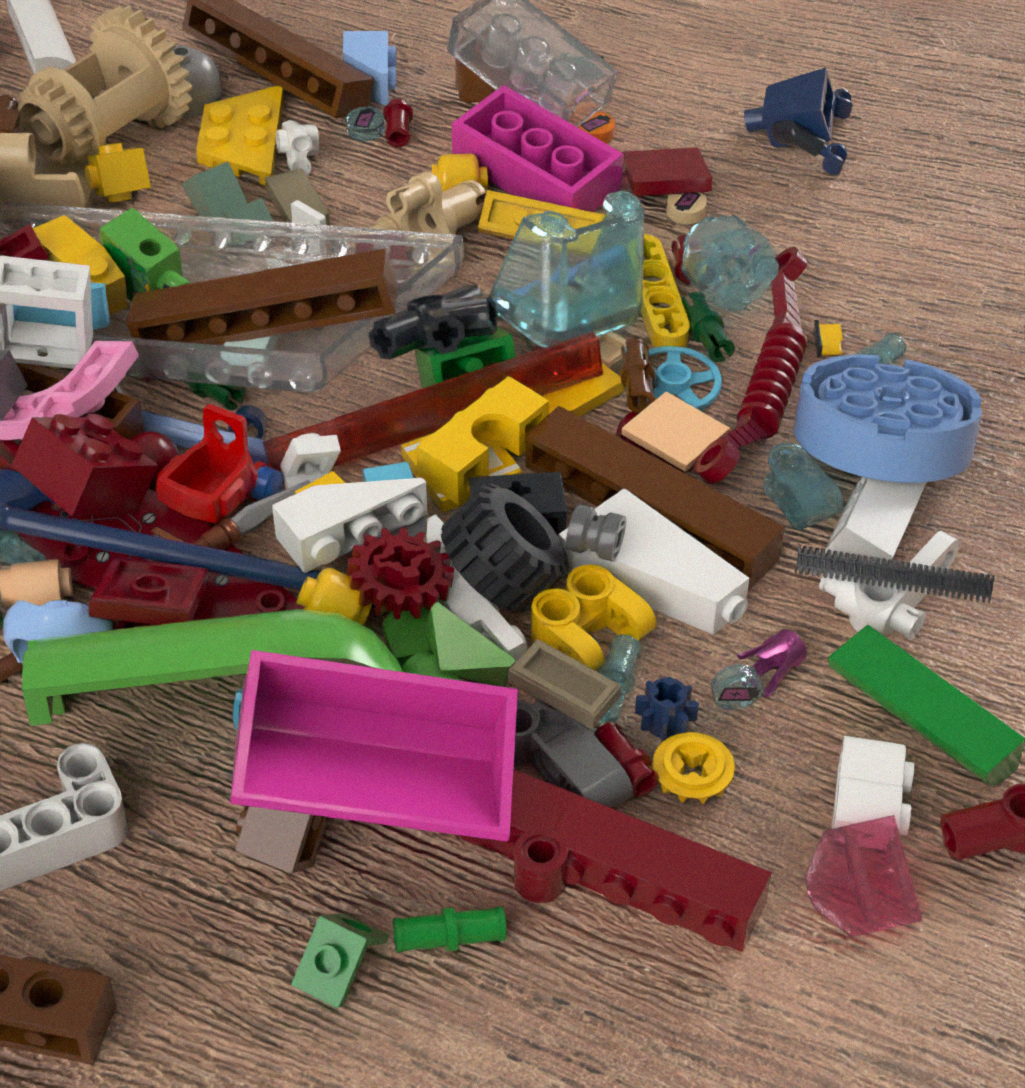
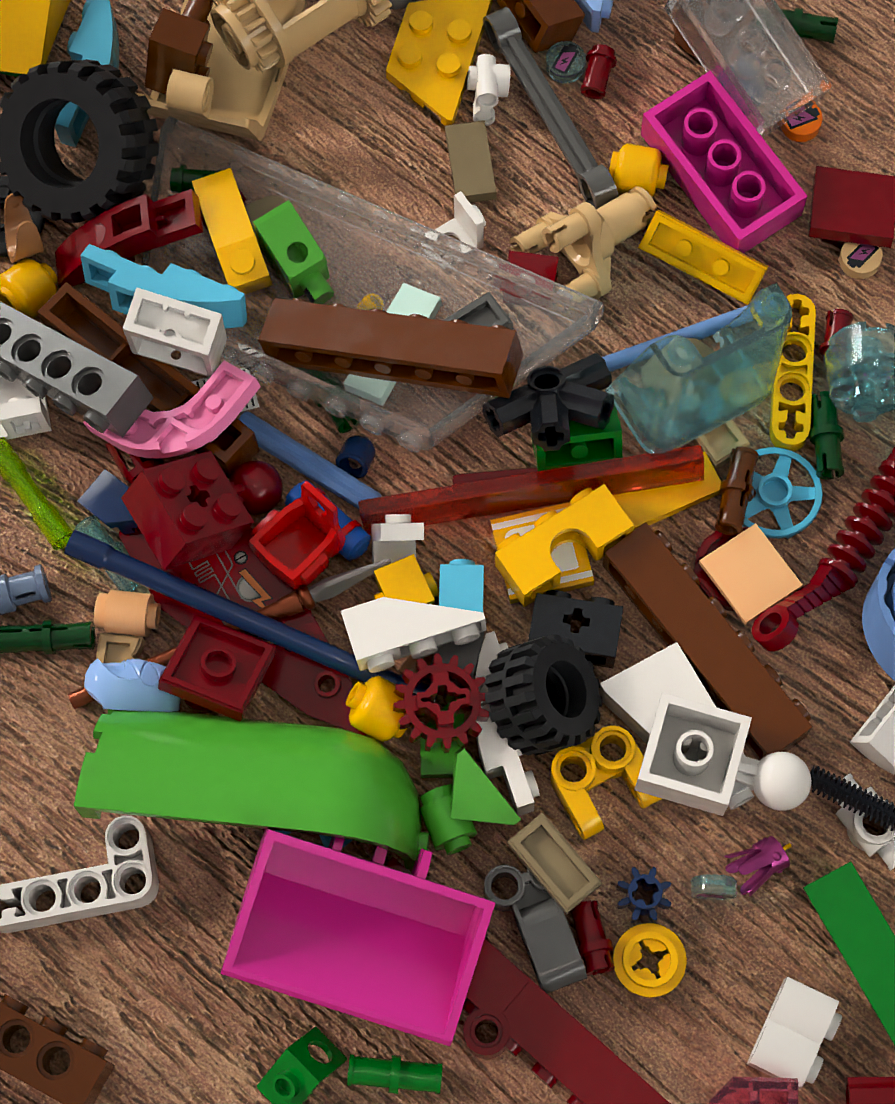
camera: 20 degrees right, 25 degrees up
(117, 172) = (299, 94): yellow brick -> none
(219, 195) = (397, 163): sand green brick -> none
(303, 106) = (506, 38): none -> dark grey piece
(598, 533) = (629, 704): dark grey wheel -> none
(620, 668) = (613, 840): clear light blue axle -> none
(683, 556) = (720, 735): none -> white brick
(800, 486) = (851, 676): clear light blue piece -> none

